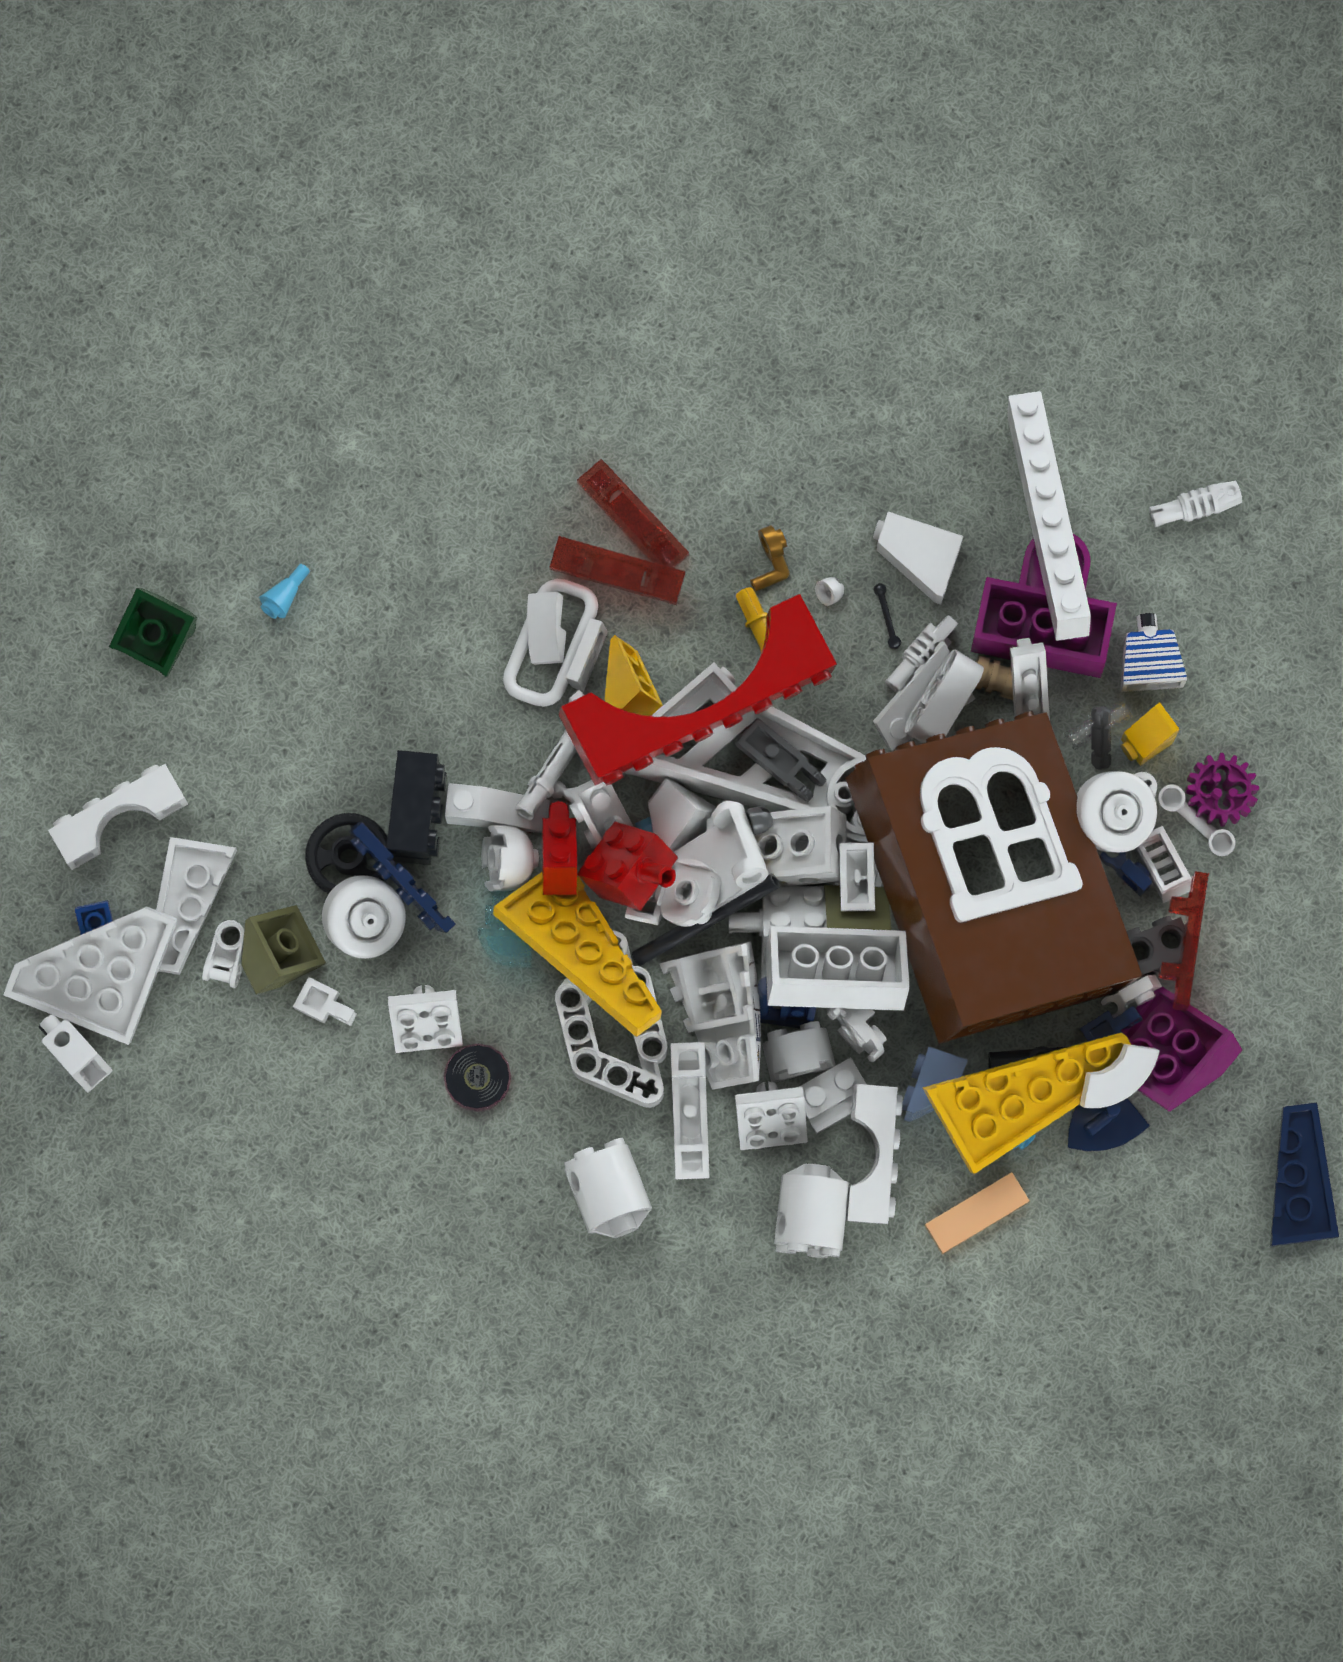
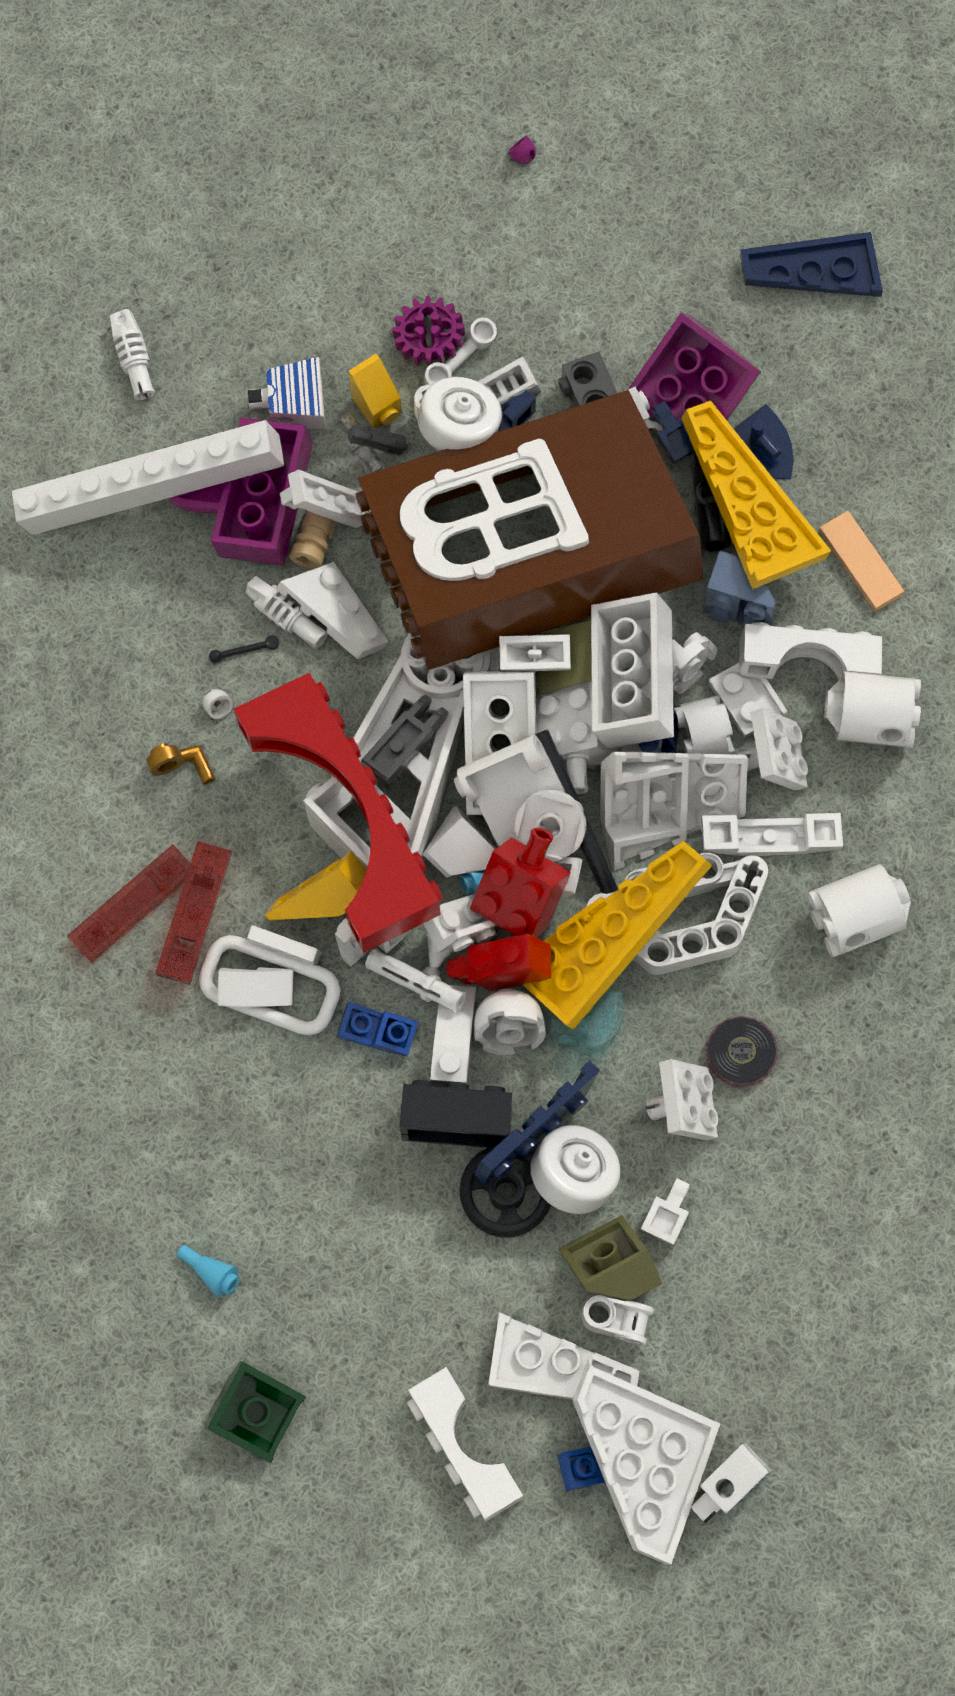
camera: 90 degrees left, 5 degrees down
(506, 741) = (377, 1029): none -> blue slope
(753, 613) = (246, 775): yellow axle -> none
(759, 819) = (474, 749): dark grey hinge -> none
(919, 552) = (179, 613): white slope -> none
(944, 697) = (339, 582): white beam -> none
(1120, 1078) = (729, 416): white tile -> none
(1184, 971) = (589, 350): clear red hinge -> none

